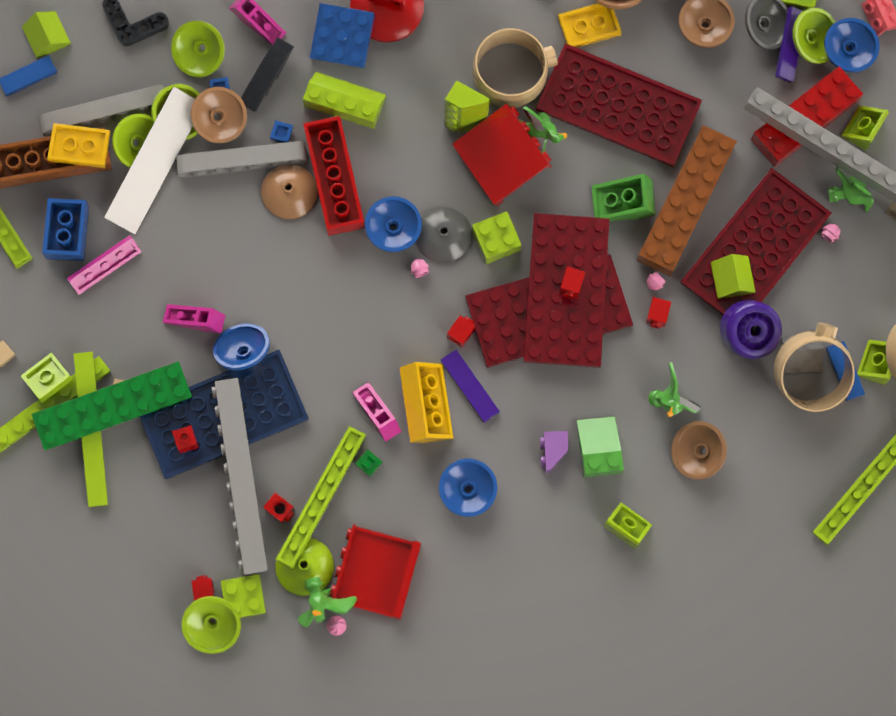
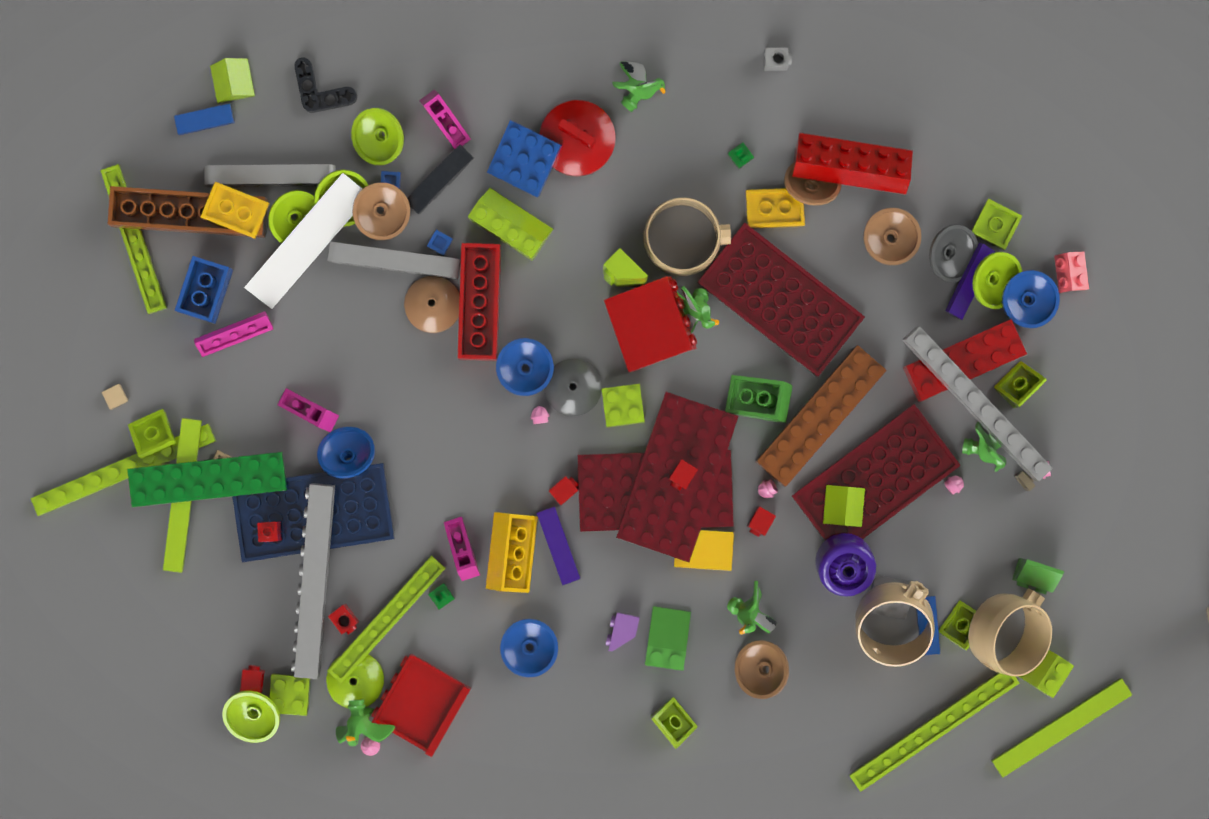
camera: 20 degrees right, 10 degrees up
(619, 354) = (711, 551): none -> yellow tile

